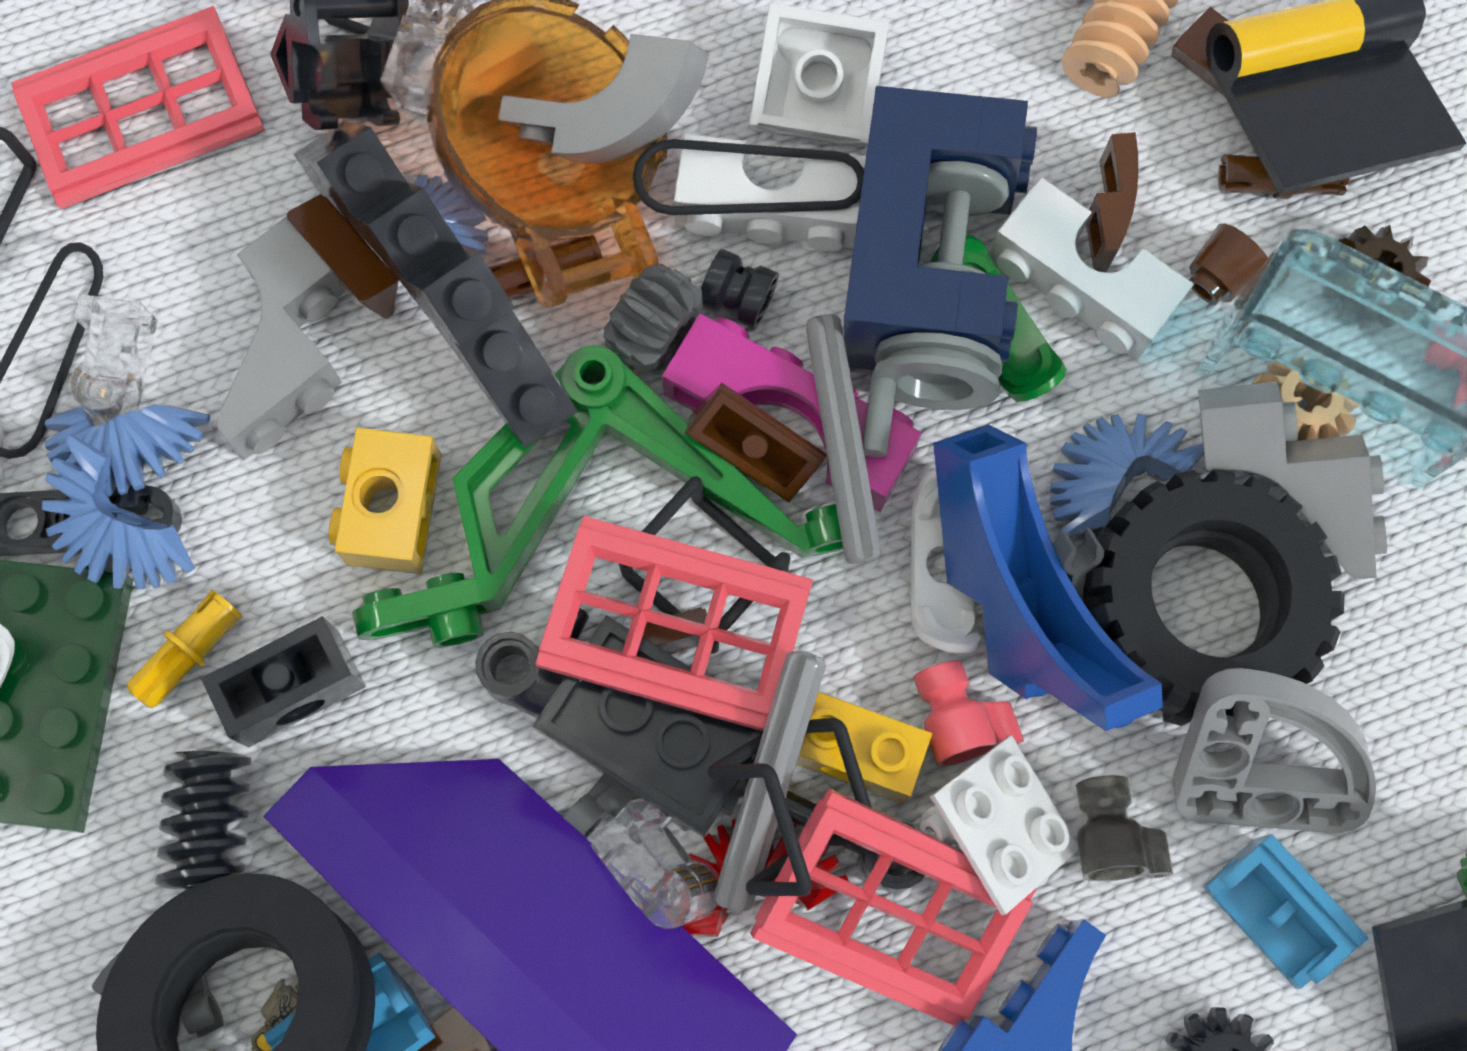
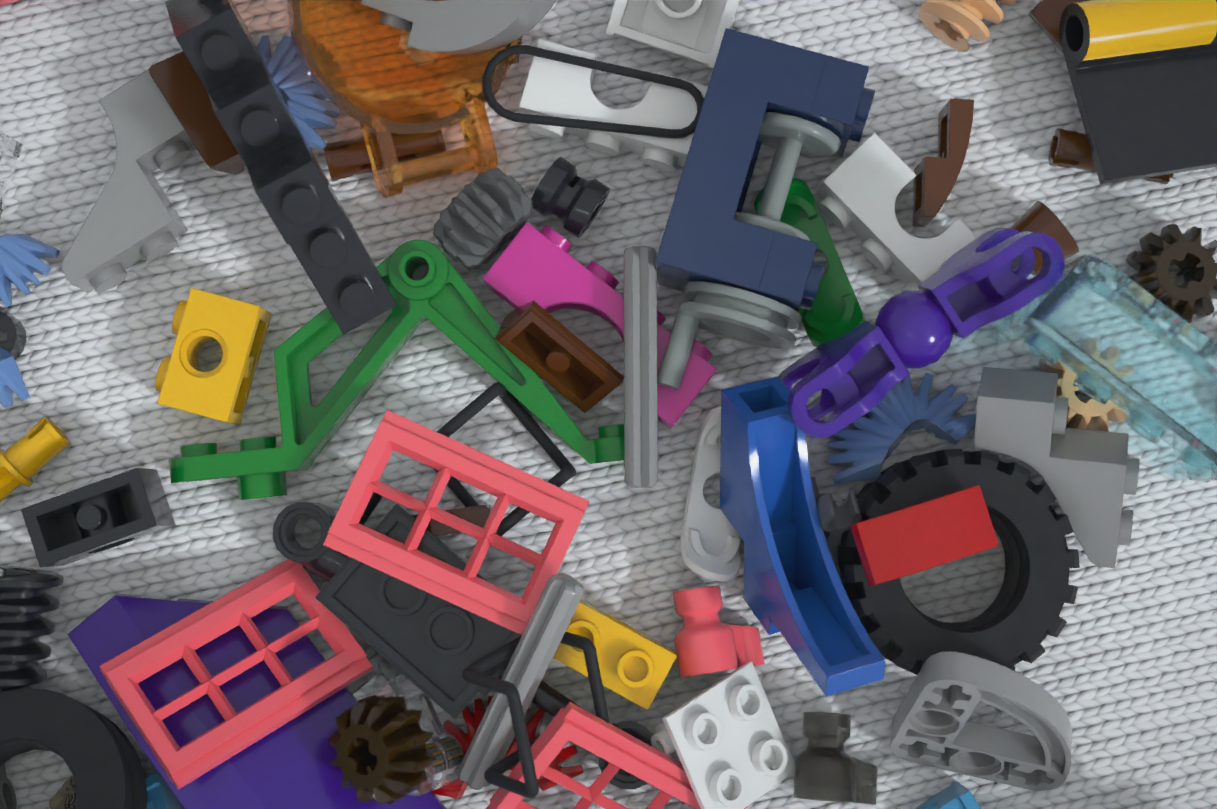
camera: 10 degrees right, 10 degrees up
(487, 867) = (260, 718): none -> coral piece
(629, 876) = (381, 749): none -> dark brown gear
(1128, 346) = (918, 327): none -> dark purple piece
(1174, 555) = (924, 535): none -> red slope

